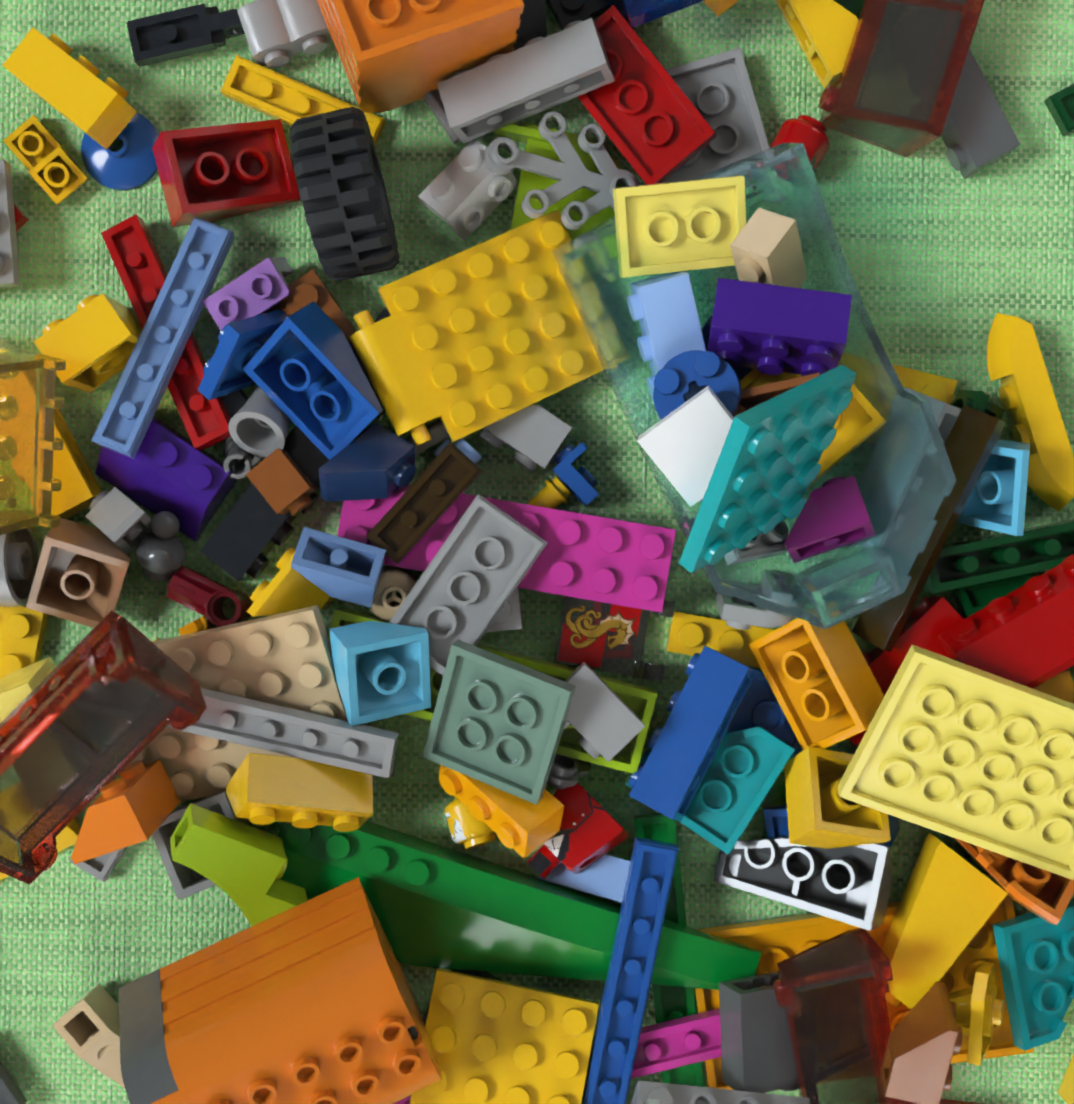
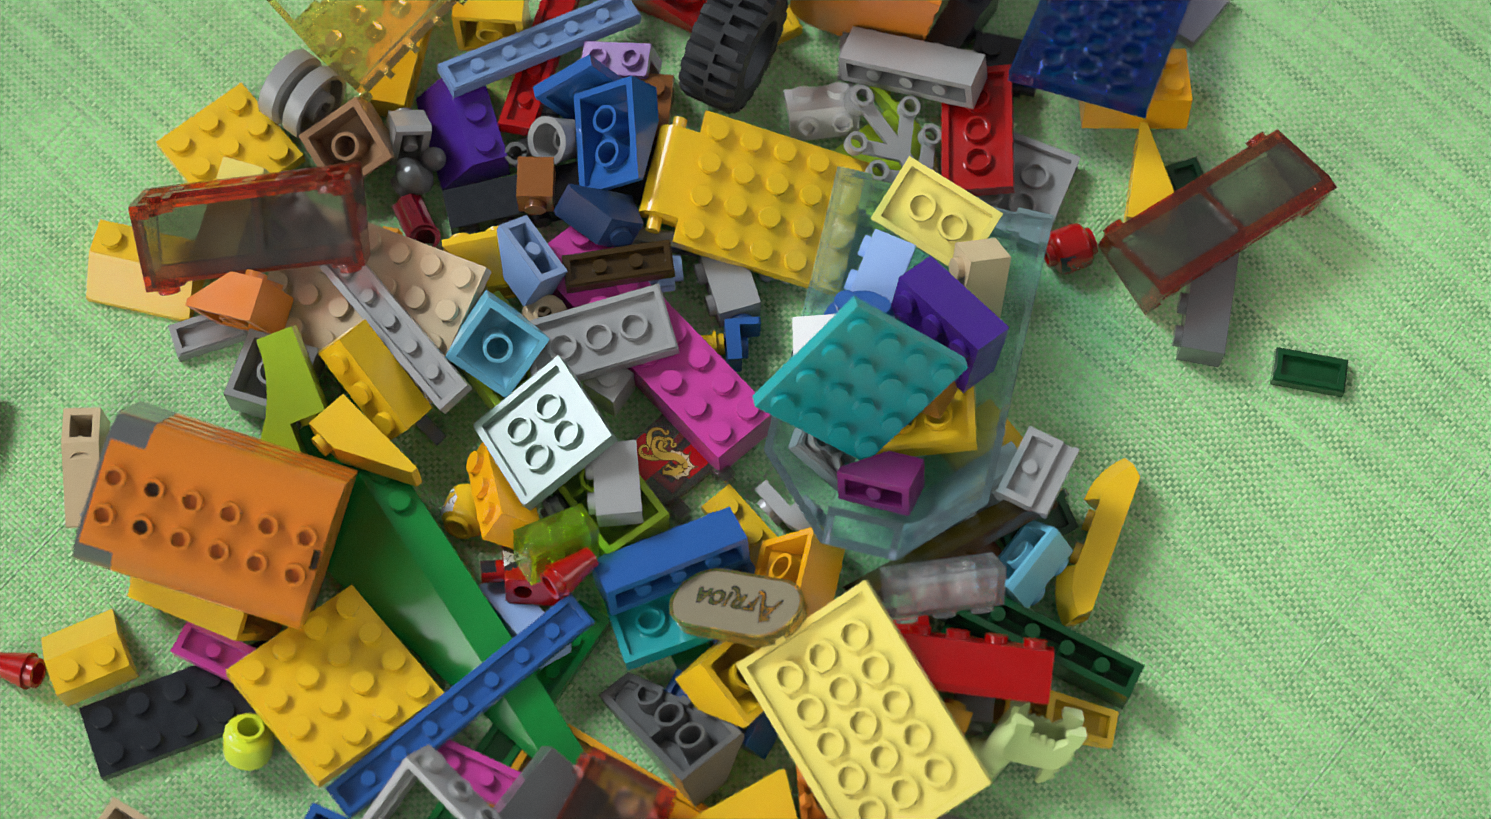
camera: 35 degrees right, 20 degrees down
(330, 858) = (359, 443): none -> yellow slope
(589, 807) = (553, 539): none -> clear neon green brick
(624, 828) = (568, 572): none -> red cone
(800, 743) = (738, 607): none -> dark tan tile
(960, 577) = (943, 587): none -> clear slope
(972, 410) = (1037, 472): none -> light grey plate

